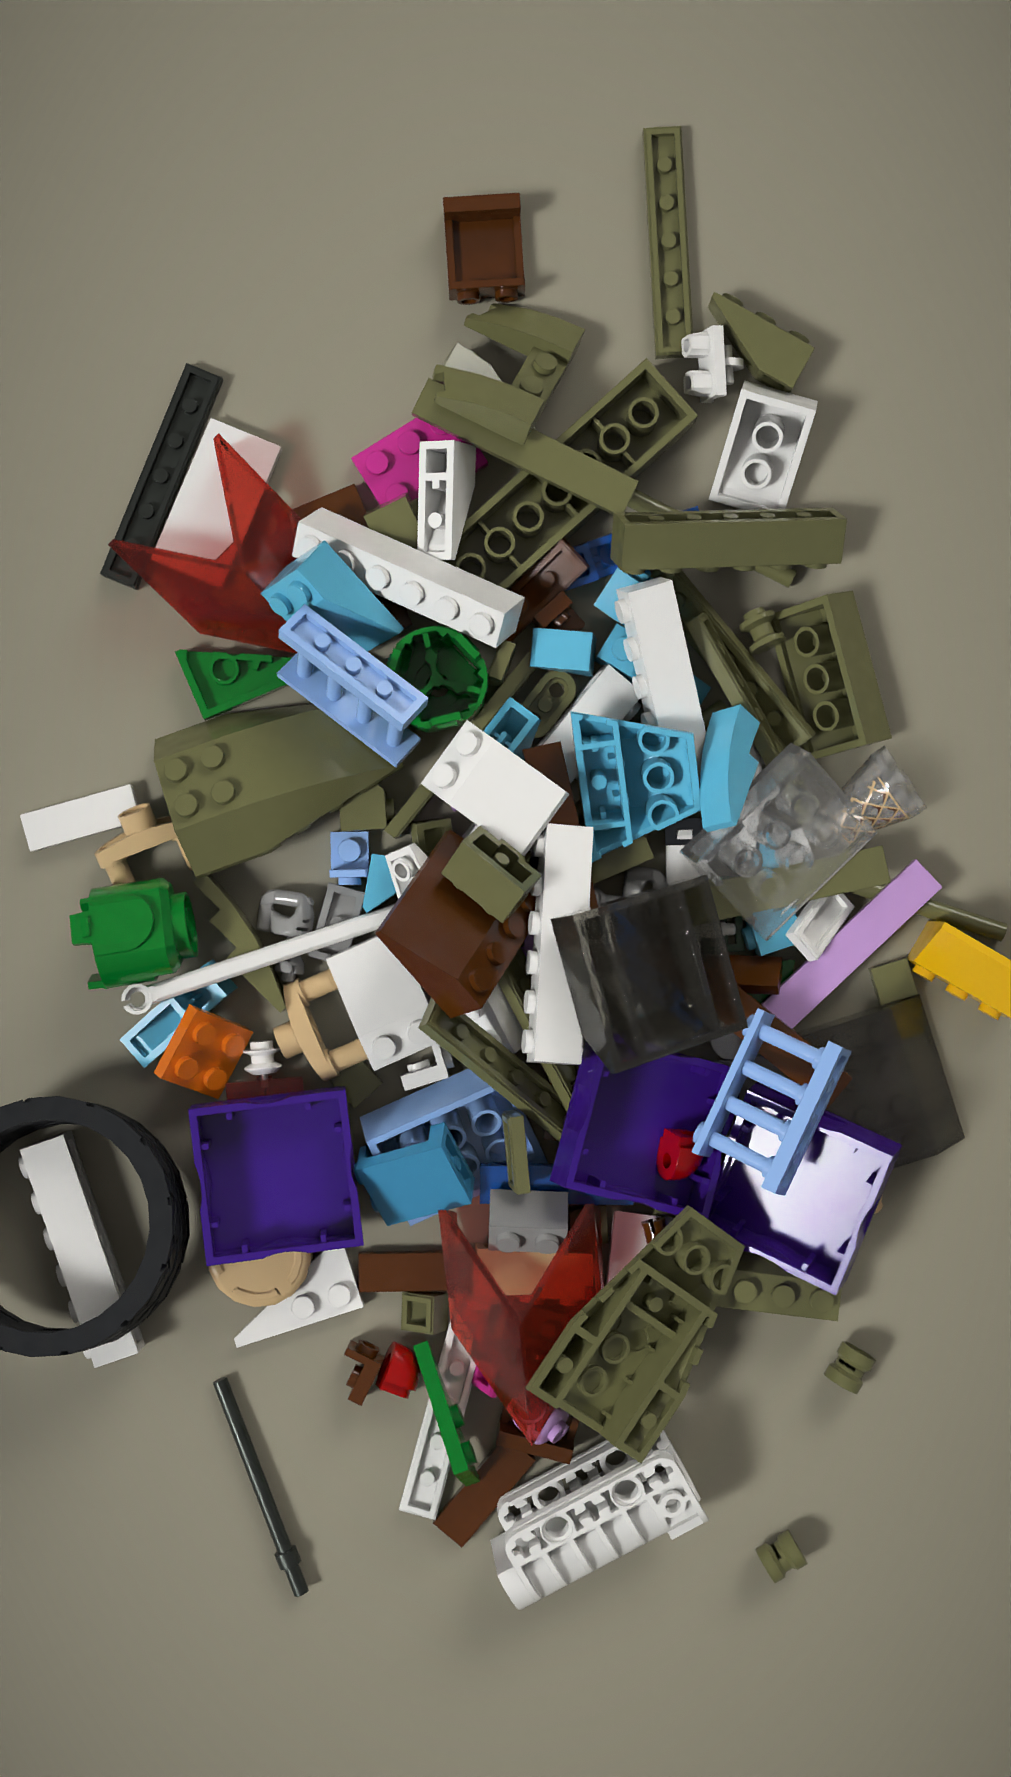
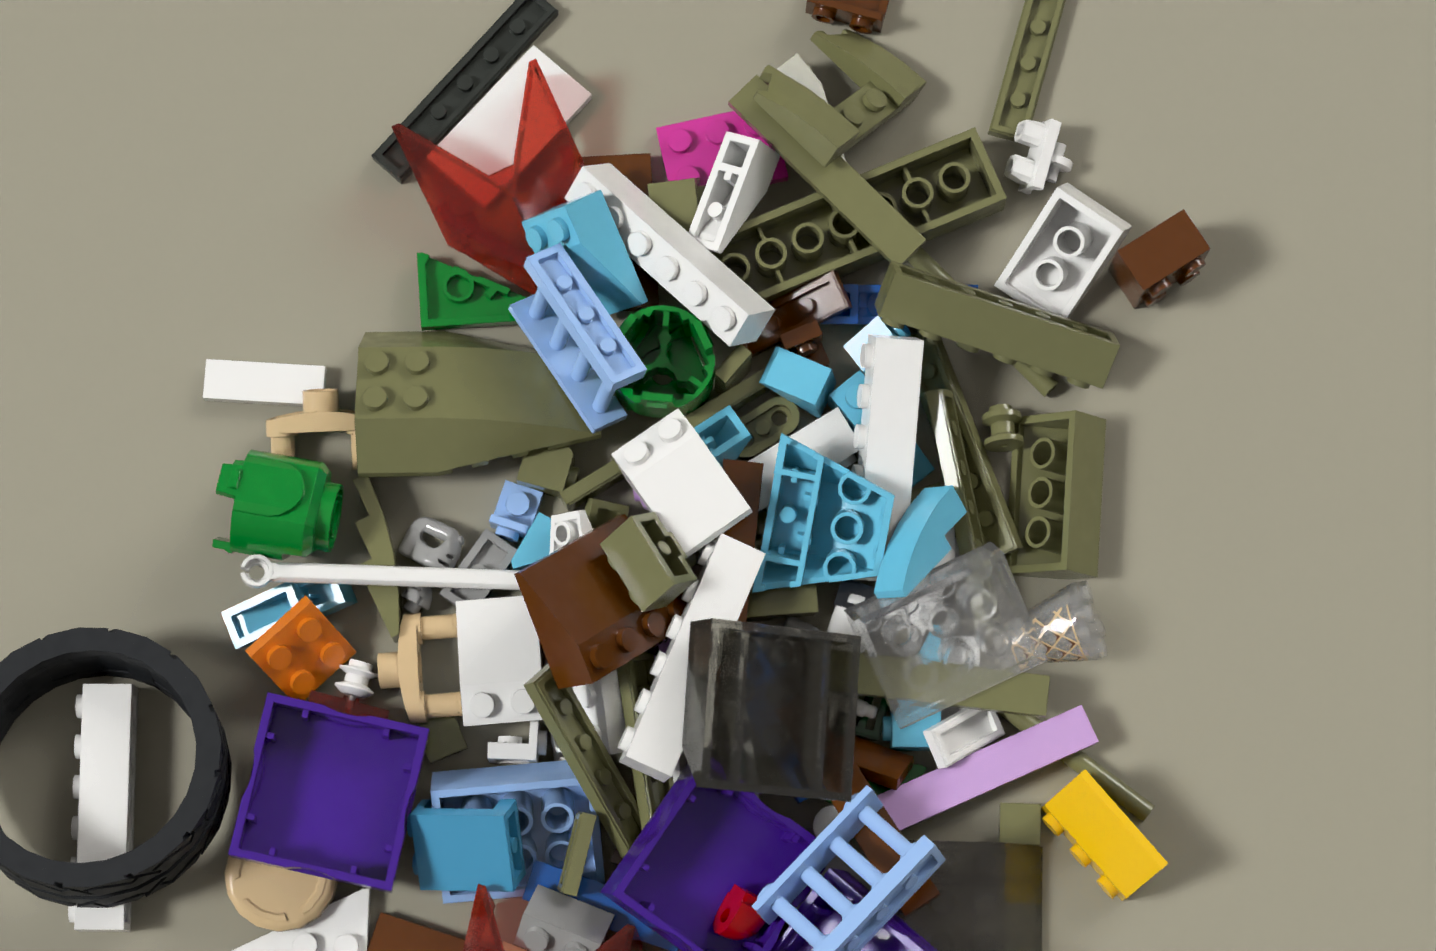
camera: 25 degrees right, 10 degrees down
(767, 350) = (1098, 161): olive slope -> none
(862, 416) = (1159, 259): none -> reddish brown brick

